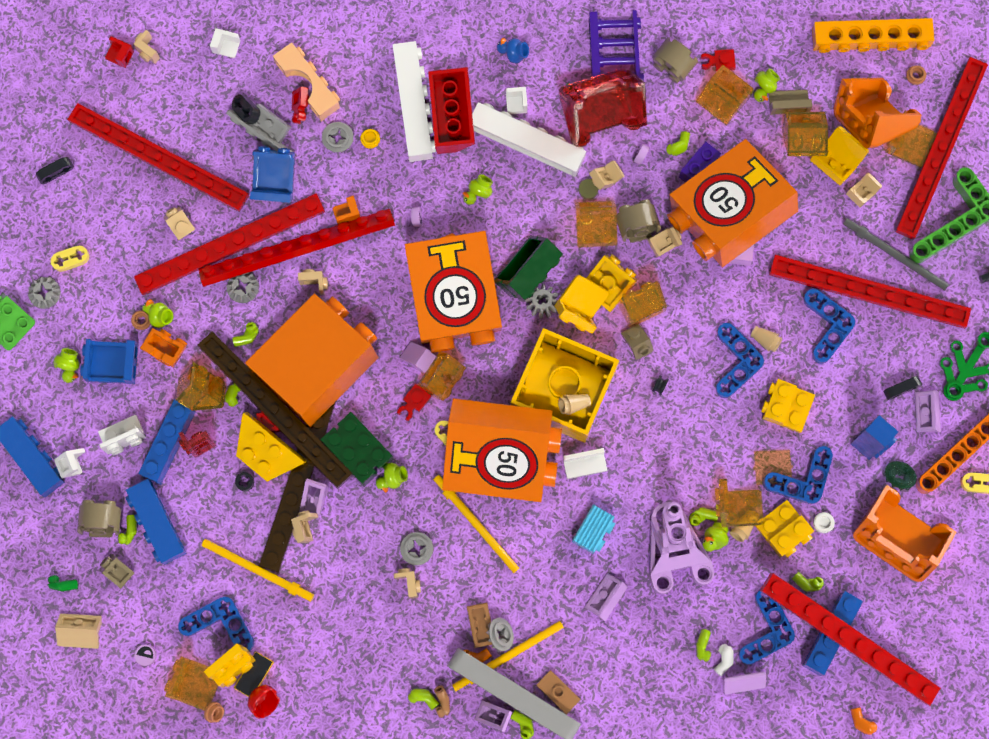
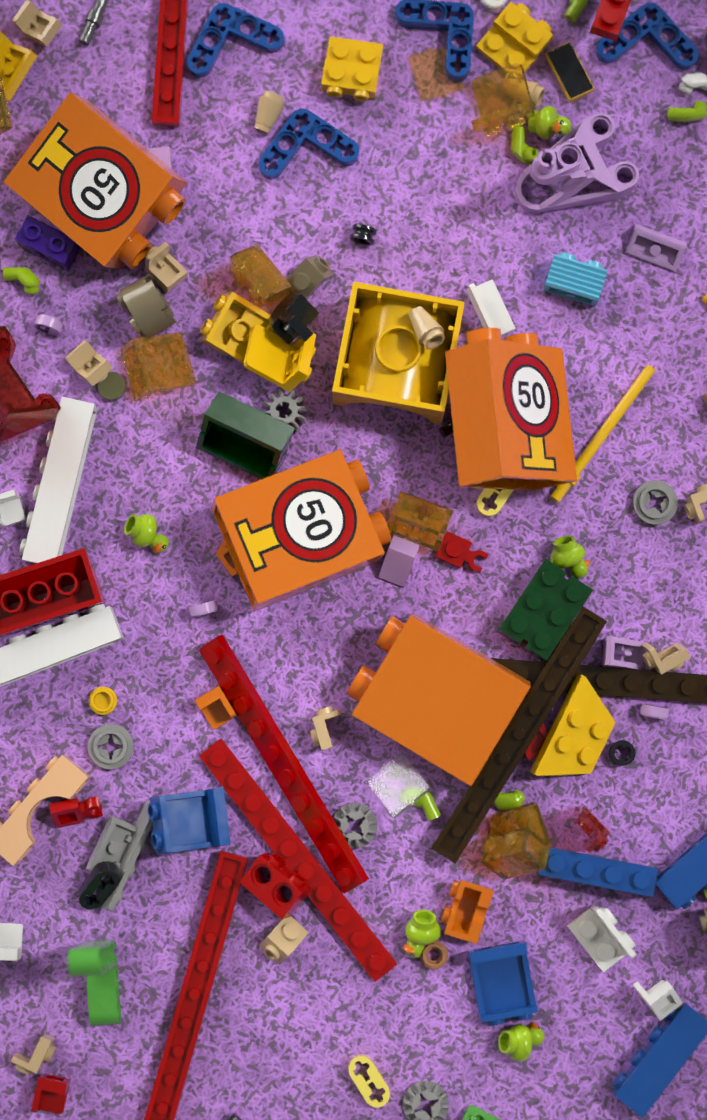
camera: 105 degrees left, 5 degrees up
(190, 97) = (100, 967): none -> bright green beam
(212, 220) = (271, 891): none -> red brick
(260, 320) = (398, 785): none -> clear piece
(267, 510) = (654, 711): none -> lavender tile
(608, 320) = (293, 317): none -> black brick
(753, 565) = (569, 72): none -> black tile

